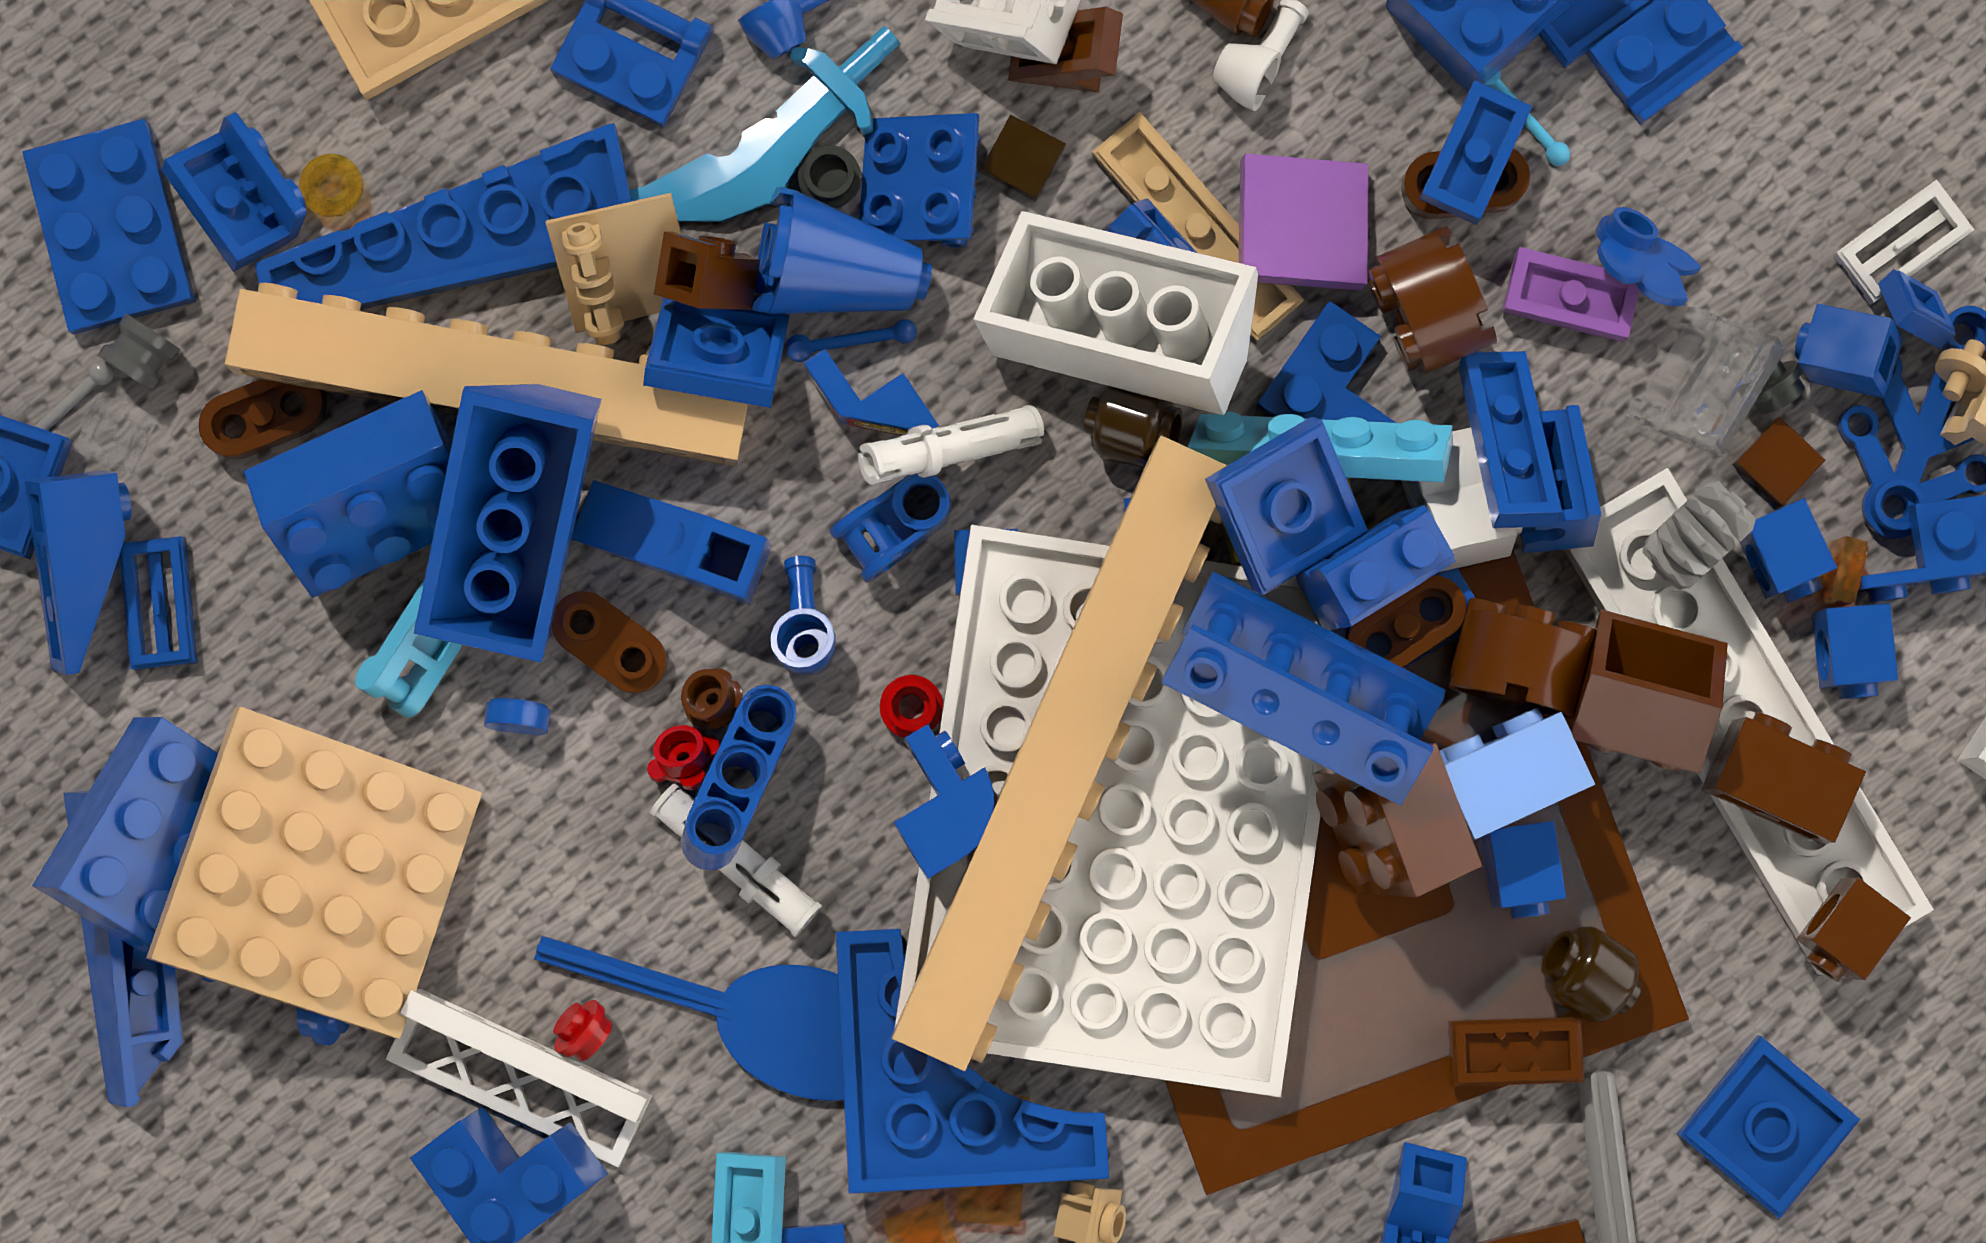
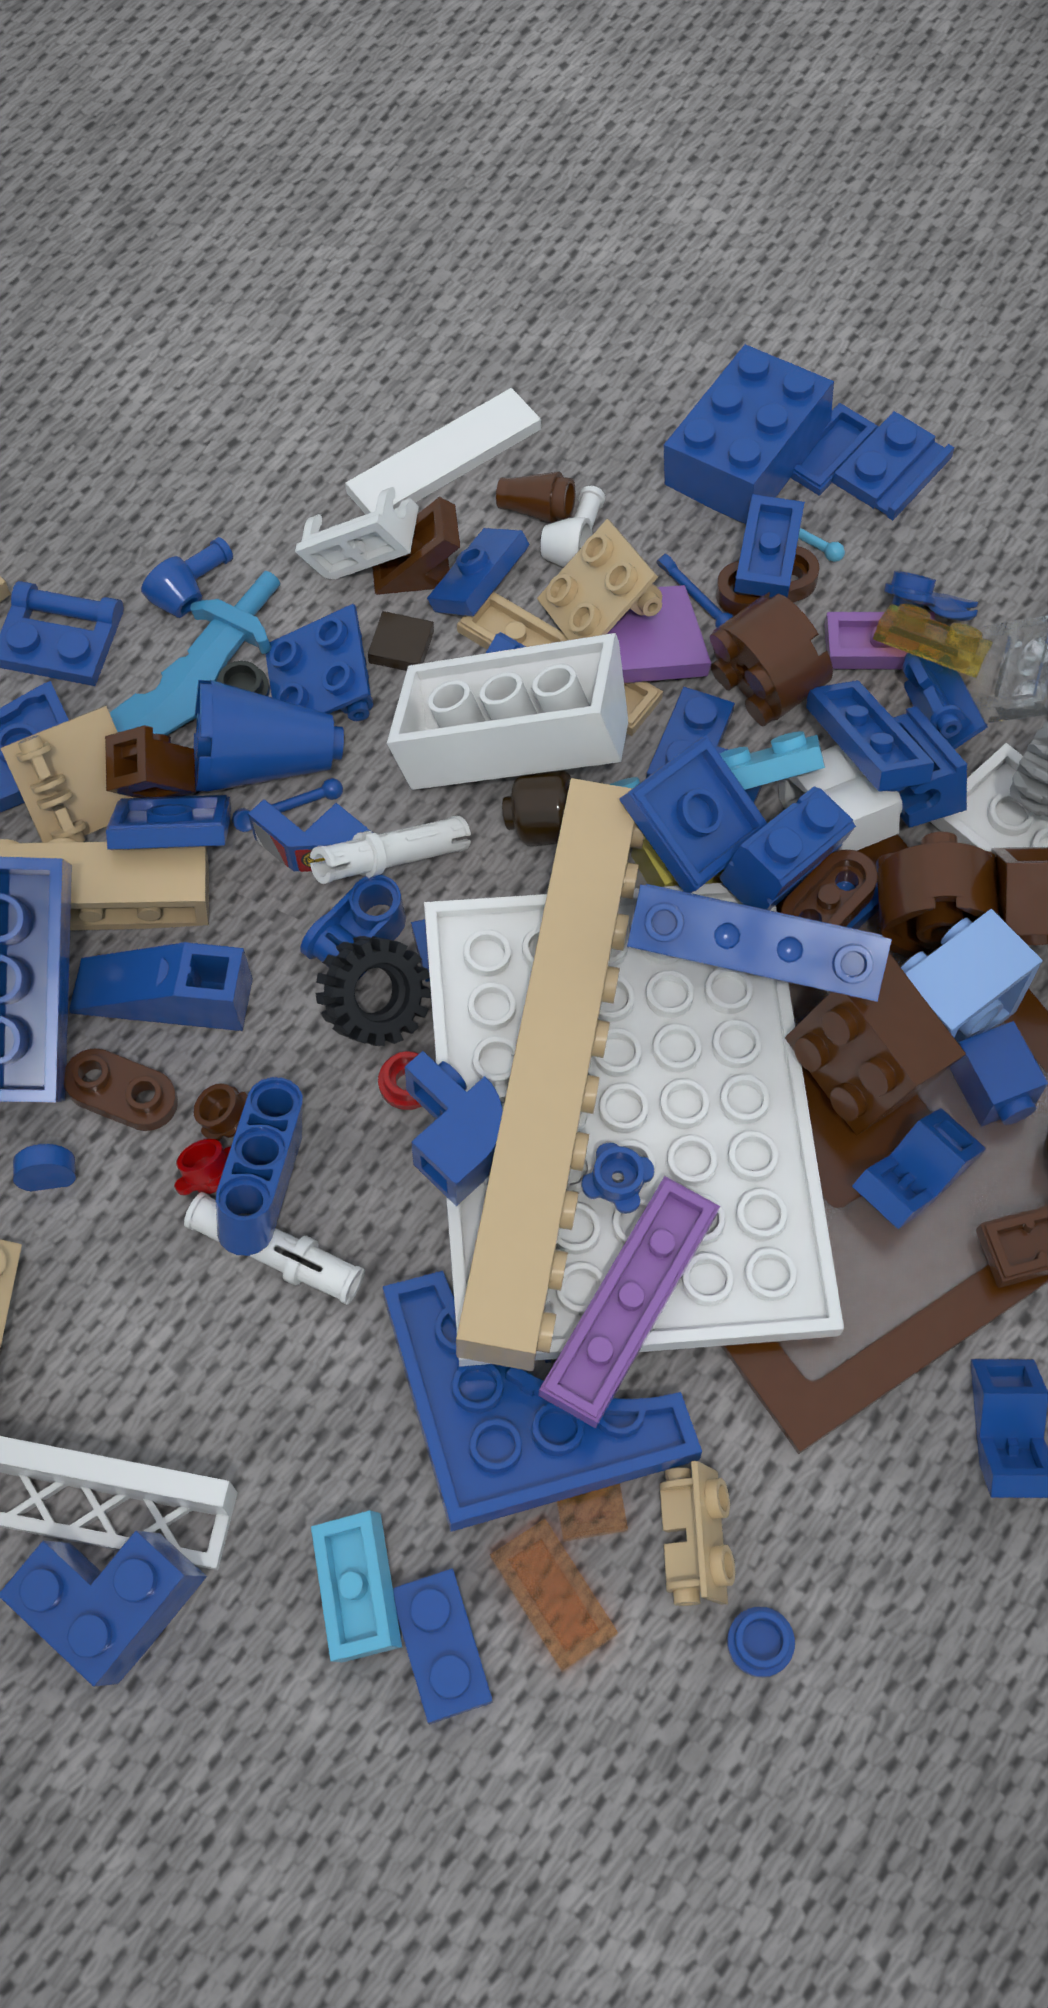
camera: 10 degrees left, 20 degrees down
(581, 1030) = (155, 1438): red plate -> none
(772, 1020) = (339, 1393): blue piece -> none
(802, 622) = (297, 1036): blue bar -> none
(912, 633) = (405, 996): none -> black tyre
(1076, 1021) = (629, 1302): none -> medium lavender tile
(1115, 892) = (622, 1160): none -> blue plate
(1142, 83) = (478, 571): none -> blue plate
(1263, 160) = (601, 586): none -> tan hinge
(1402, 220) = (672, 570): none -> blue hinge
(1410, 944) = (919, 1168): none -> blue slope
(1614, 397) = (943, 699): none -> blue hinge
(1623, 328) = (951, 646): none -> clear yellow plate

